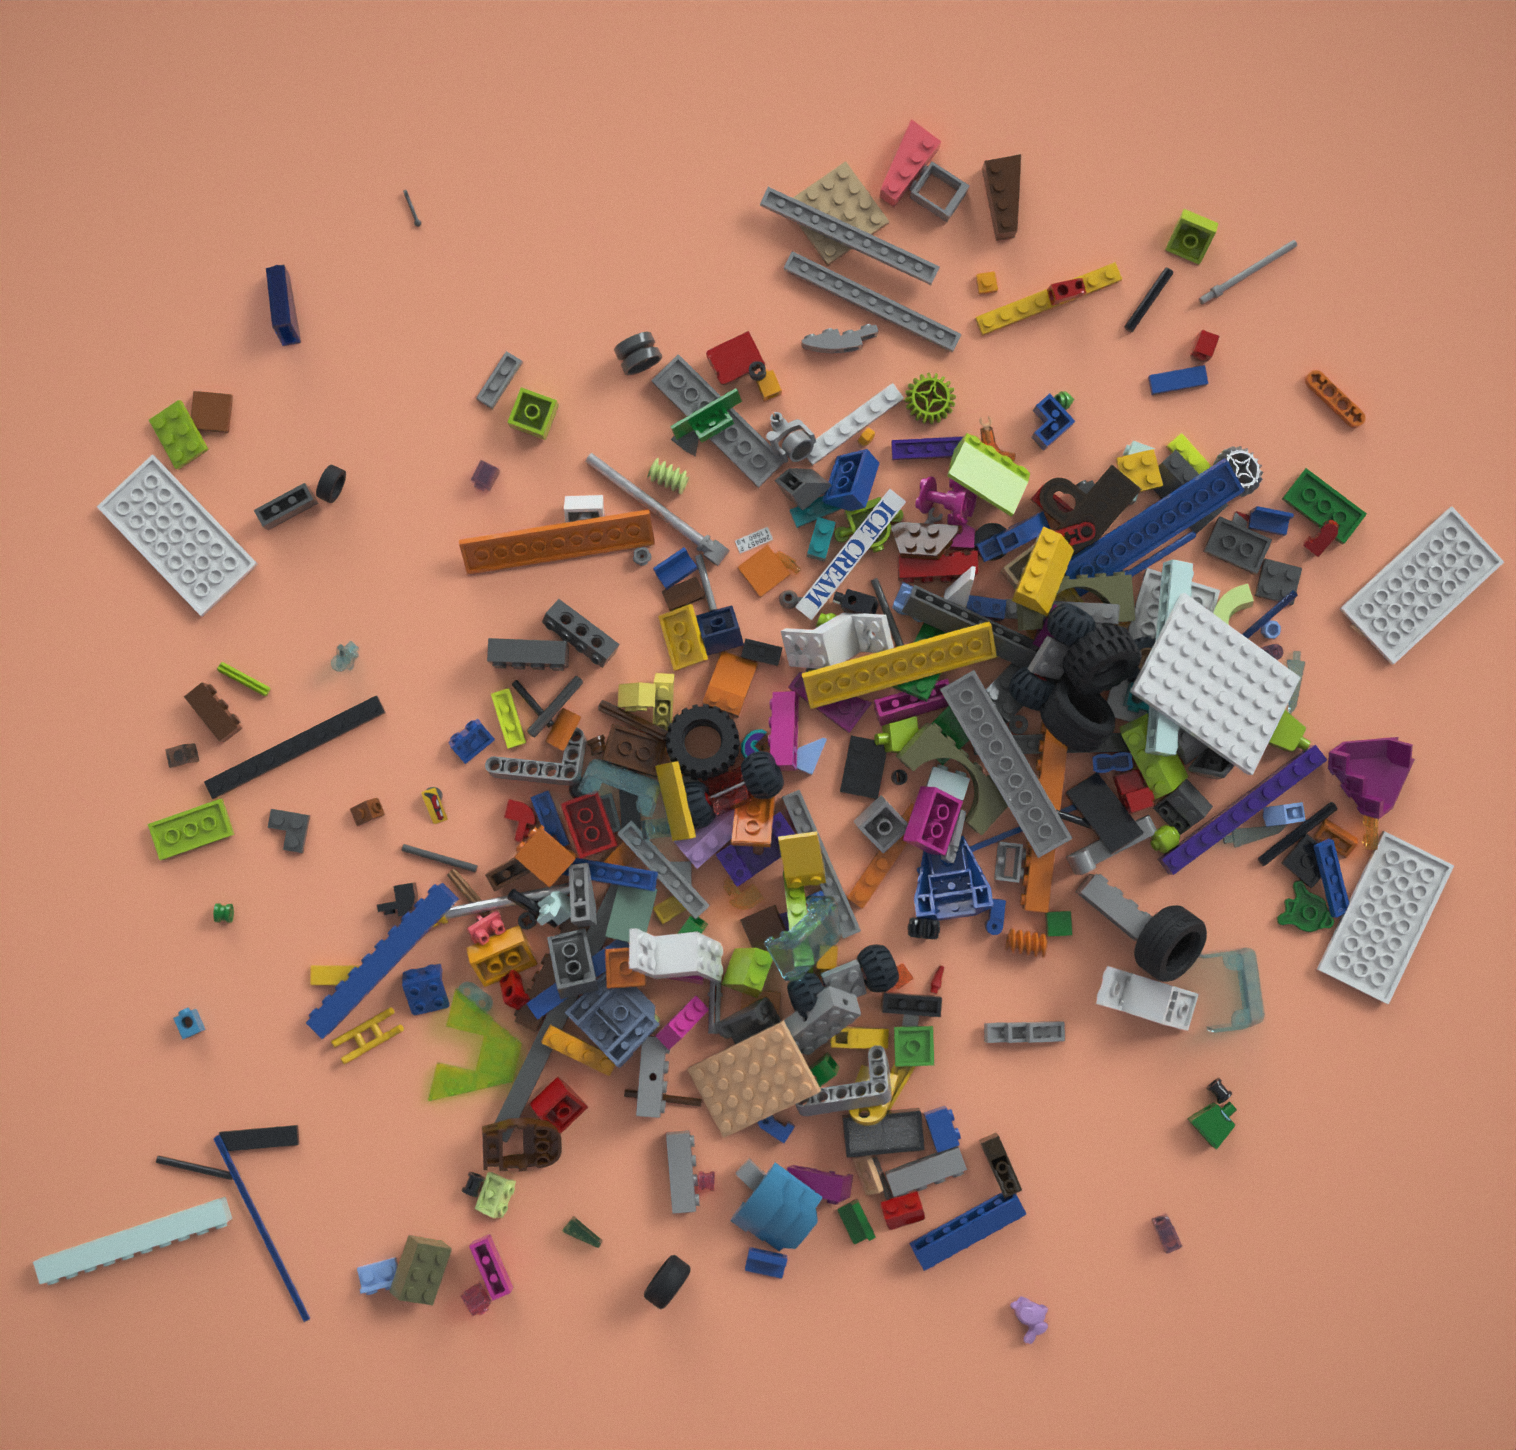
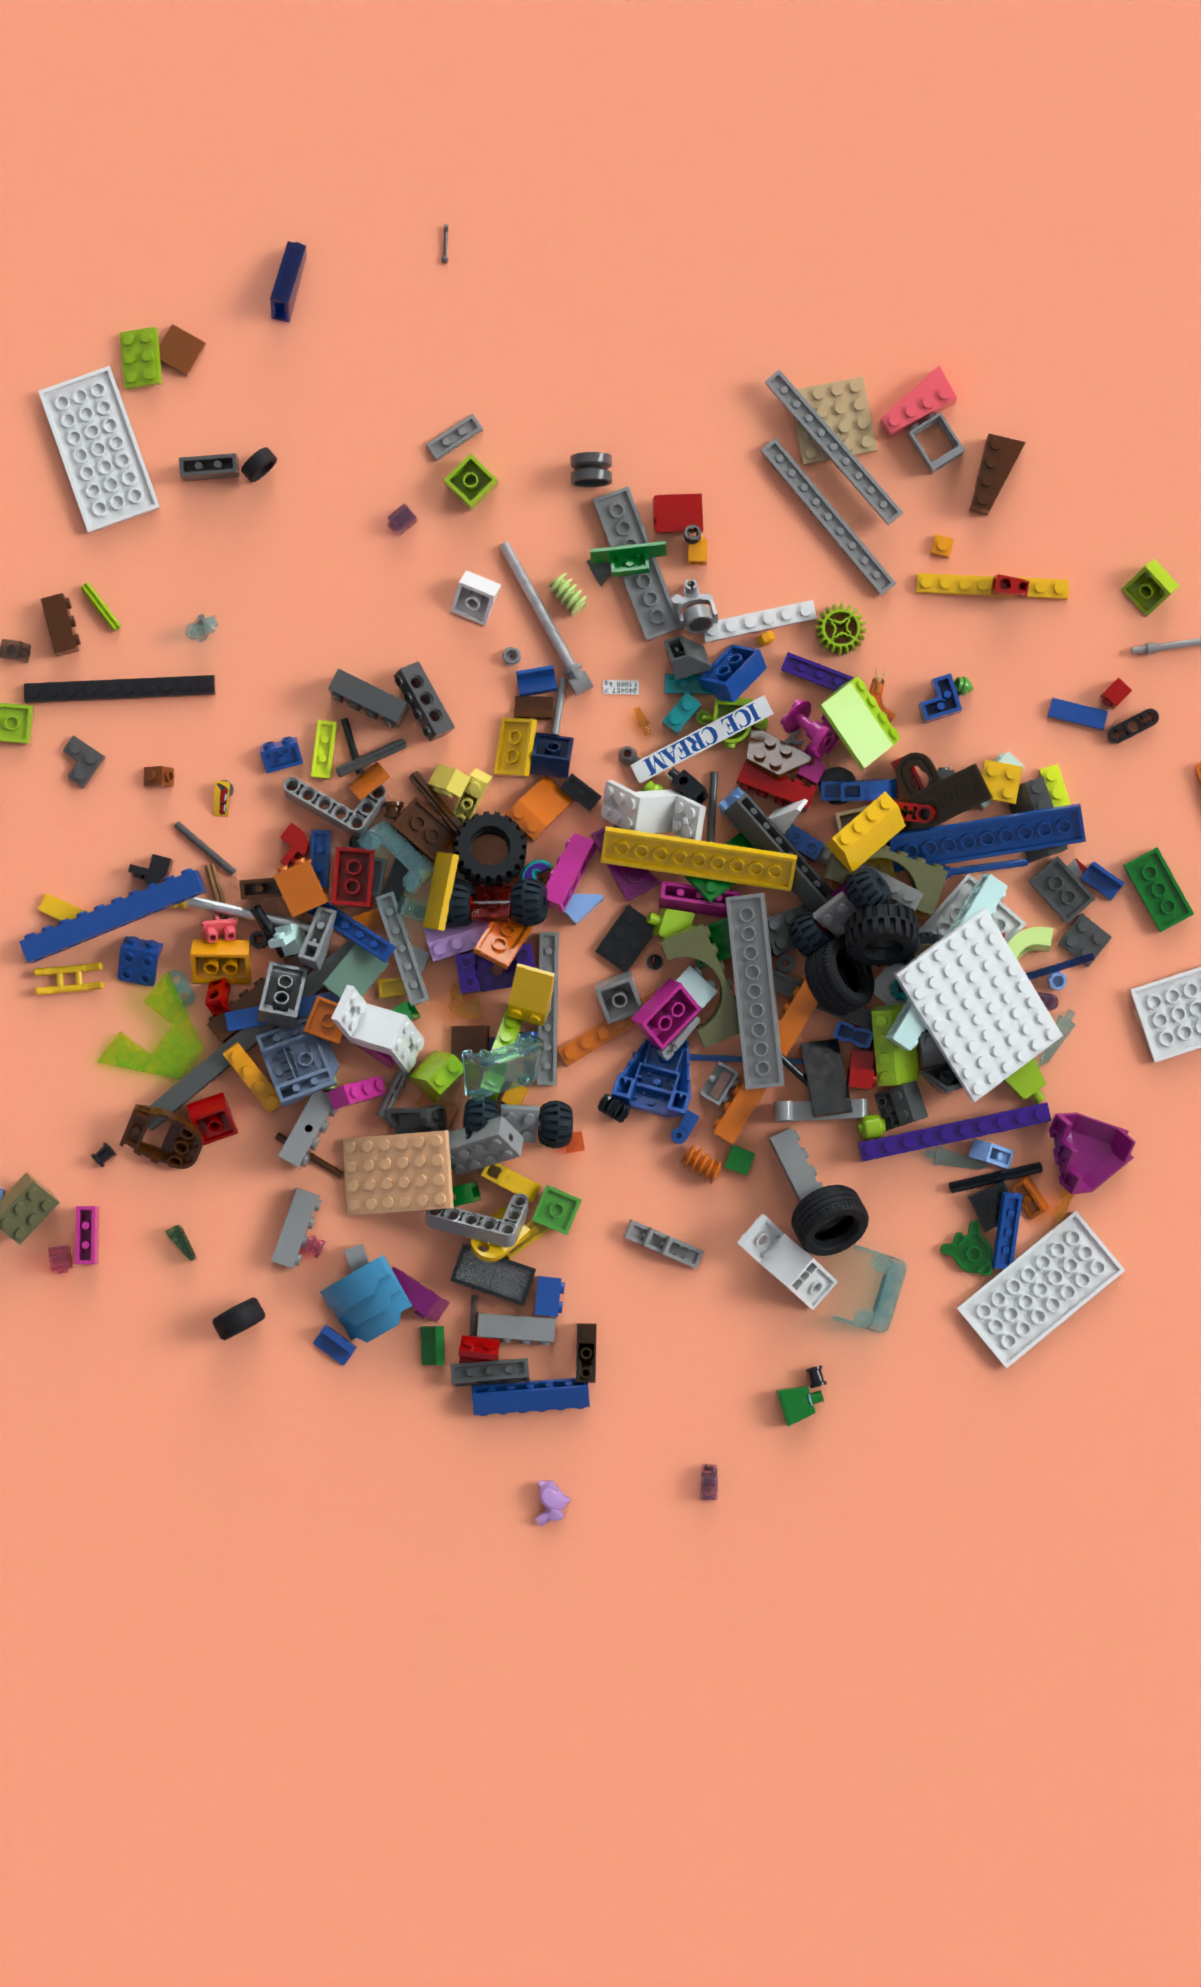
camera: 30 degrees right, 0 degrees up
(495, 1195) = (119, 1173): yellowish green bracket -> none
(557, 542) = (440, 609): orange plate -> none
(764, 570) = (617, 719): orange tile -> none
(776, 1128) = (398, 1228): blue leg -> none
(832, 342) = (773, 537): light grey slope -> none
(868, 1174) = (463, 1307): light nougat plate -> none
(910, 1020) = (564, 1186): white sticker -> none
(911, 1004) = (571, 1171): black brick -> none
(920, 1224) = (489, 1372): none -> dark grey fence
(936, 982) = (604, 1162): red piece -> none
(1148, 299) = (1084, 628): black axle -> none
(1236, 355) = (1142, 715): none -> black beam
(1244, 466) = (1103, 826): light grey gear -> none
(1323, 538) = (1147, 915): red leg -> none

